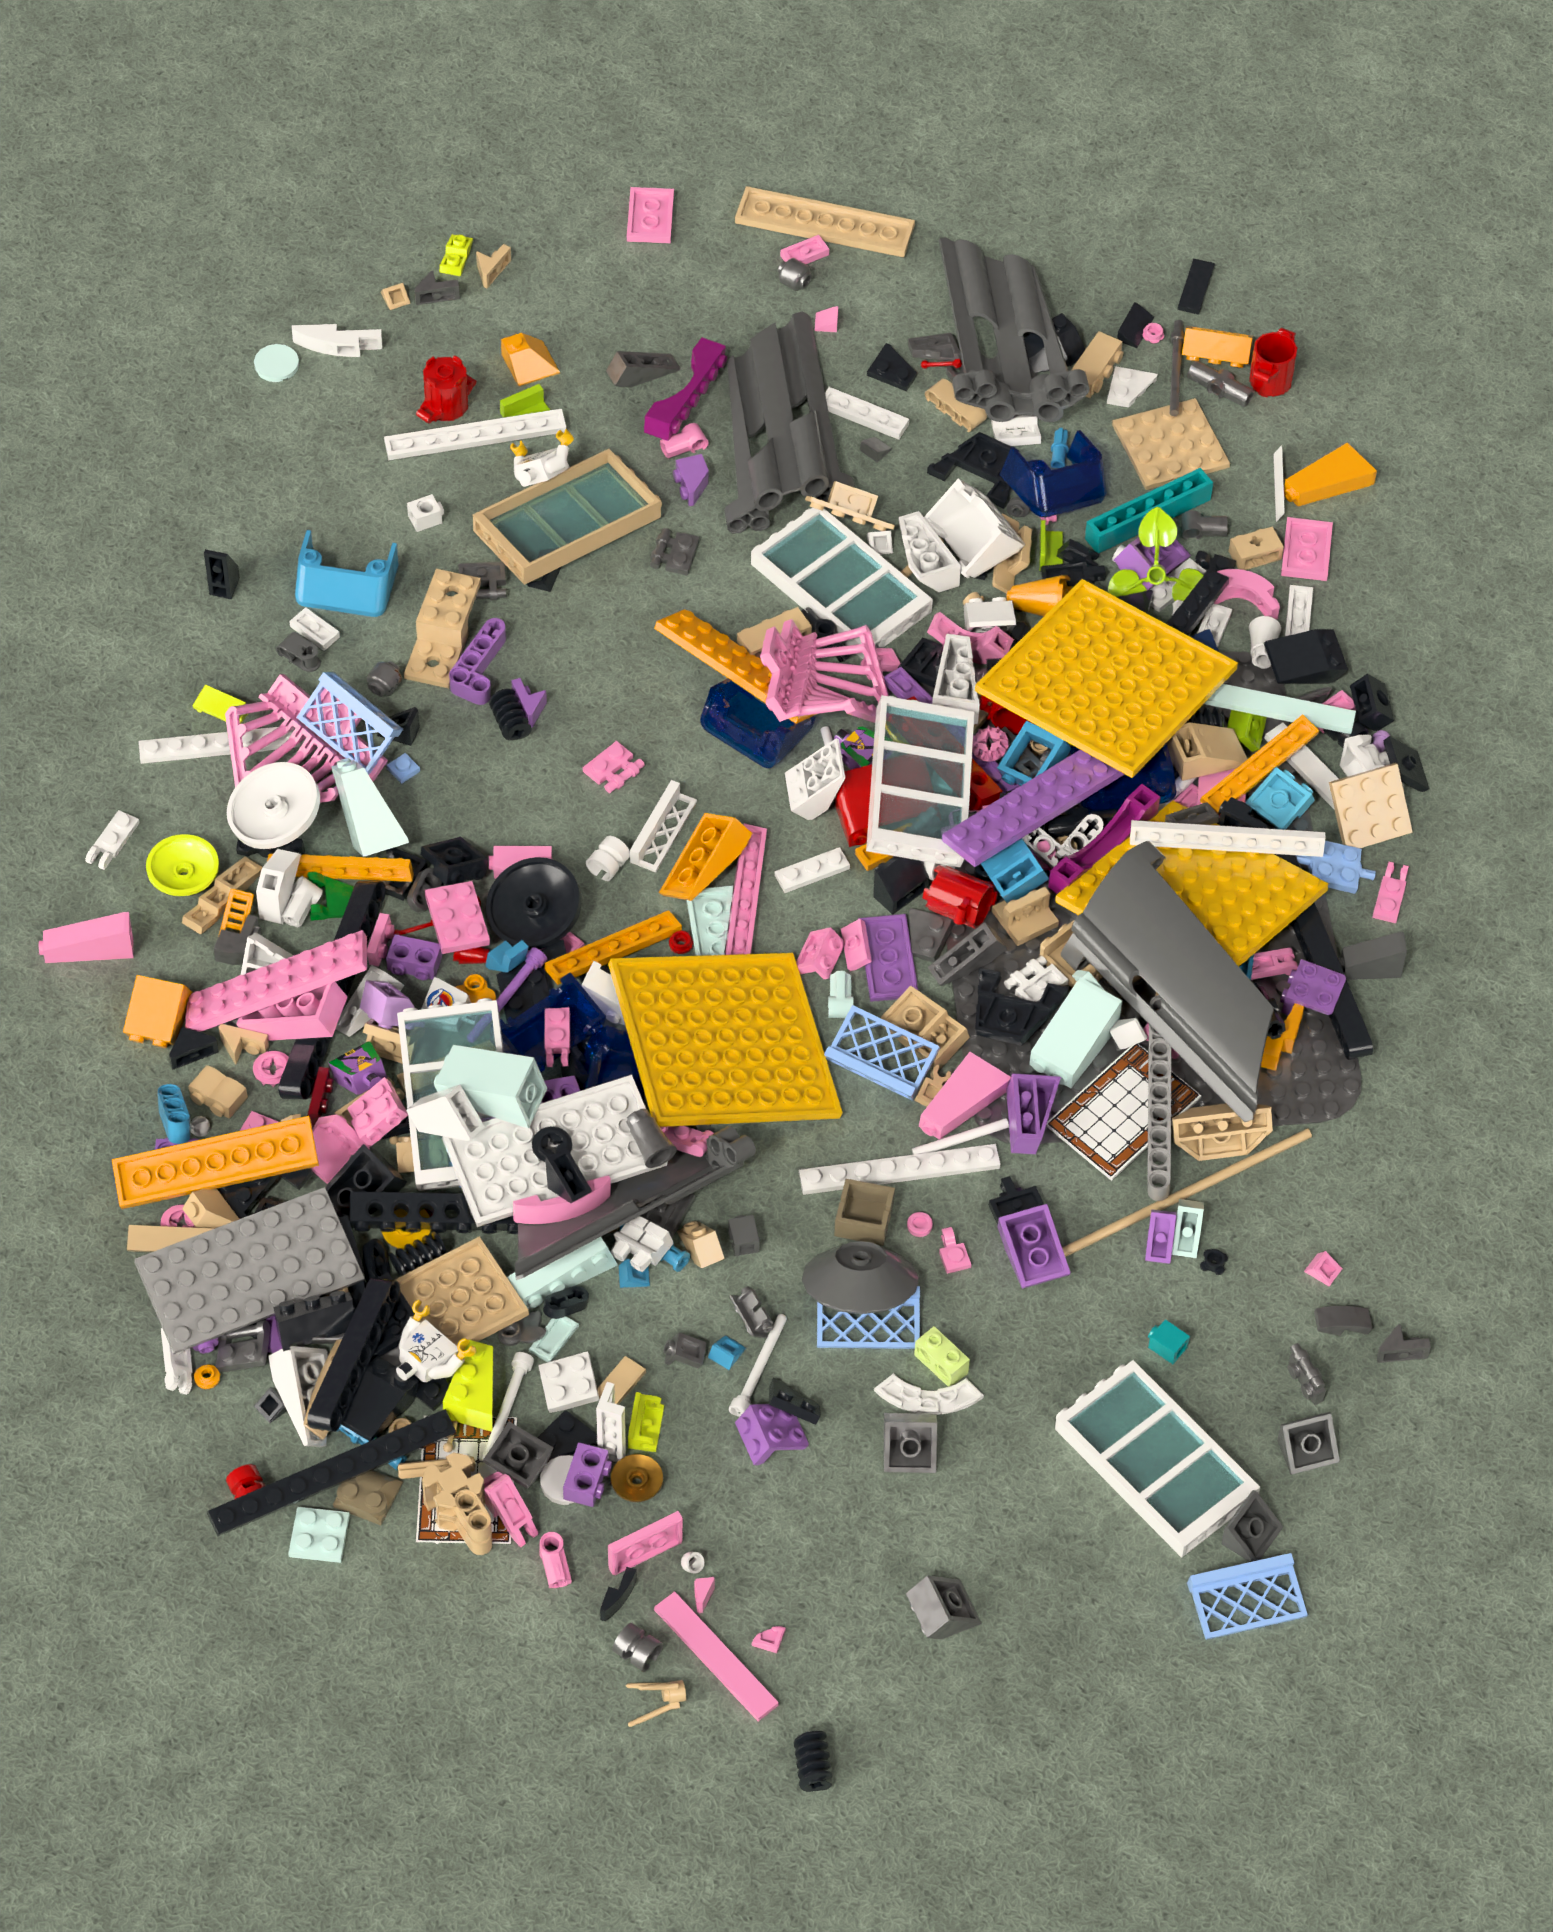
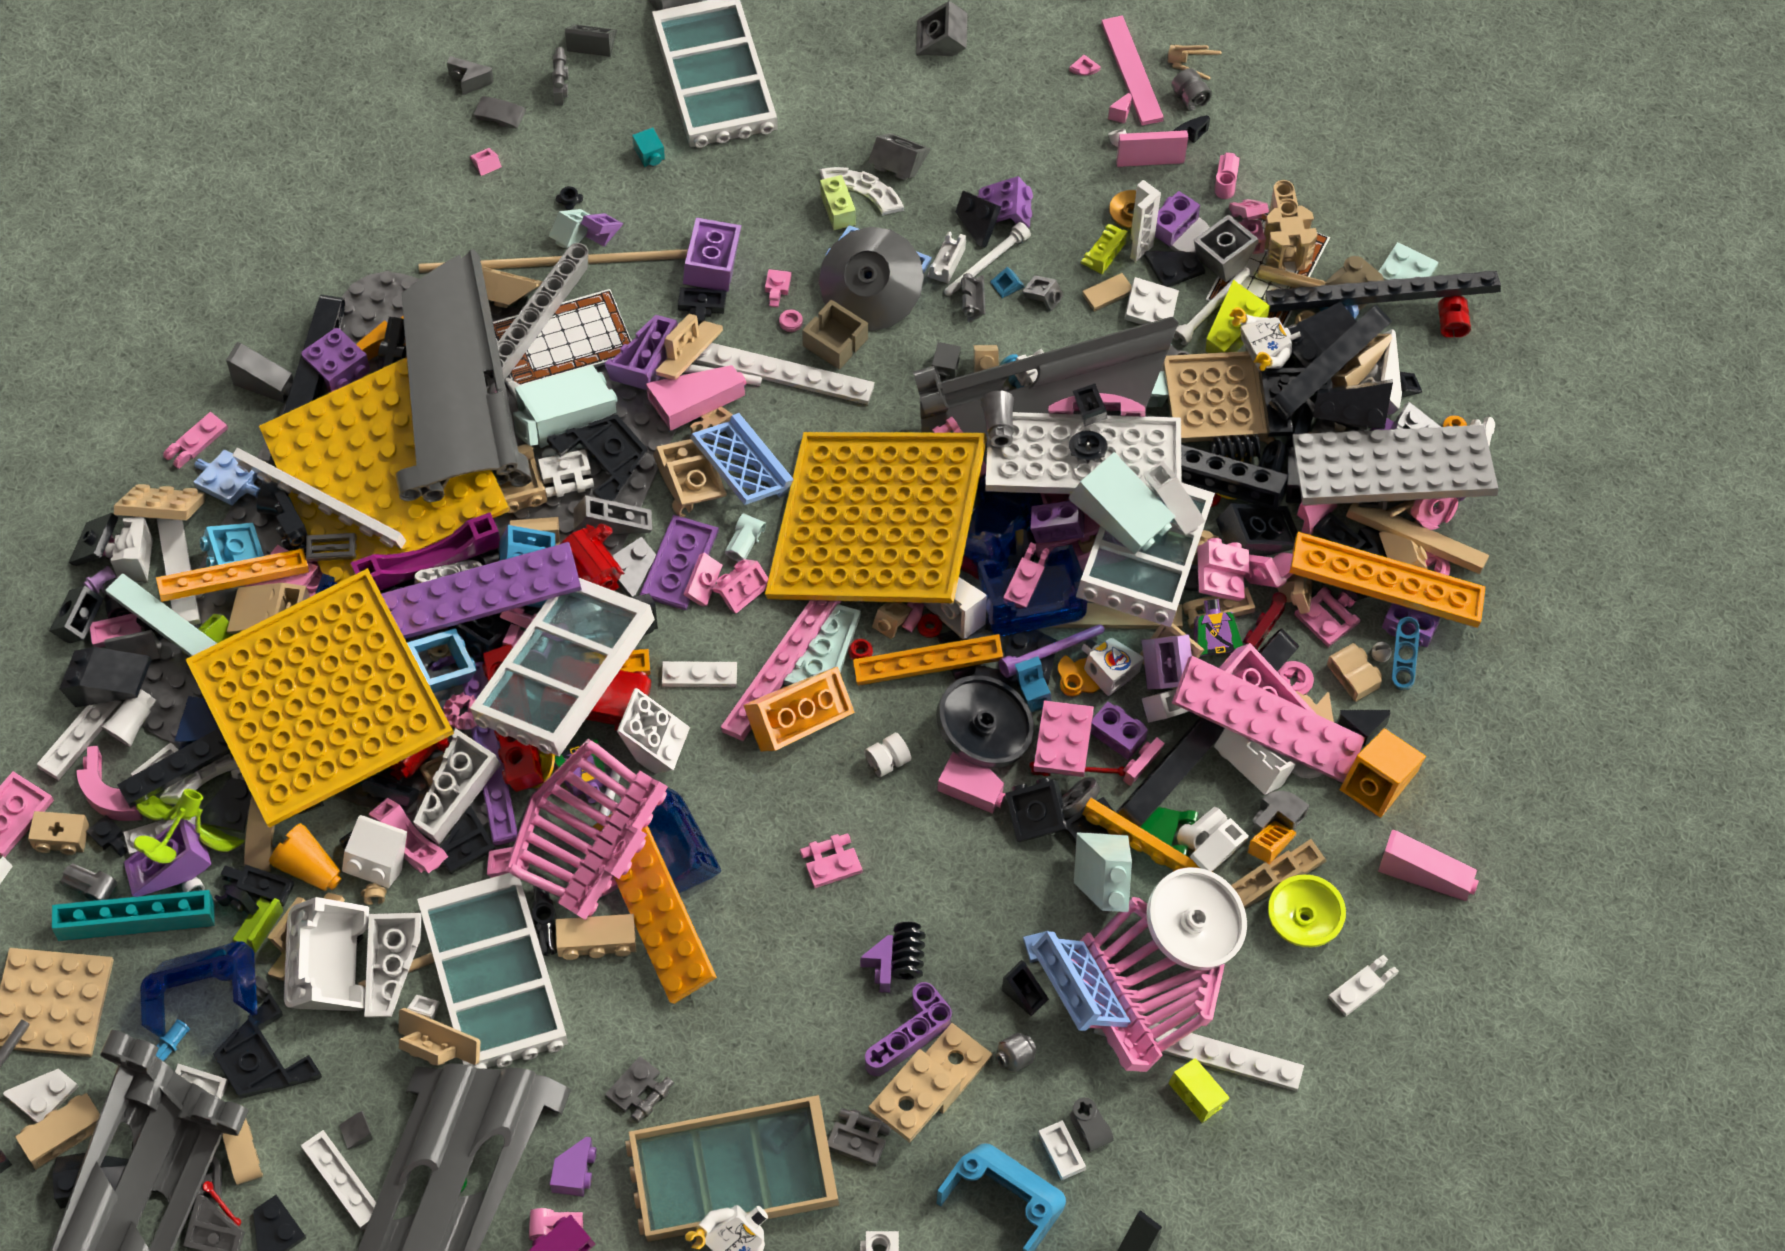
camera: 155 degrees left, 5 degrees up
(654, 824) = (820, 777): white fence -> none
(800, 1347) = (947, 258): none -> white hinge
(995, 1130) = (686, 344): none -> tan bracket

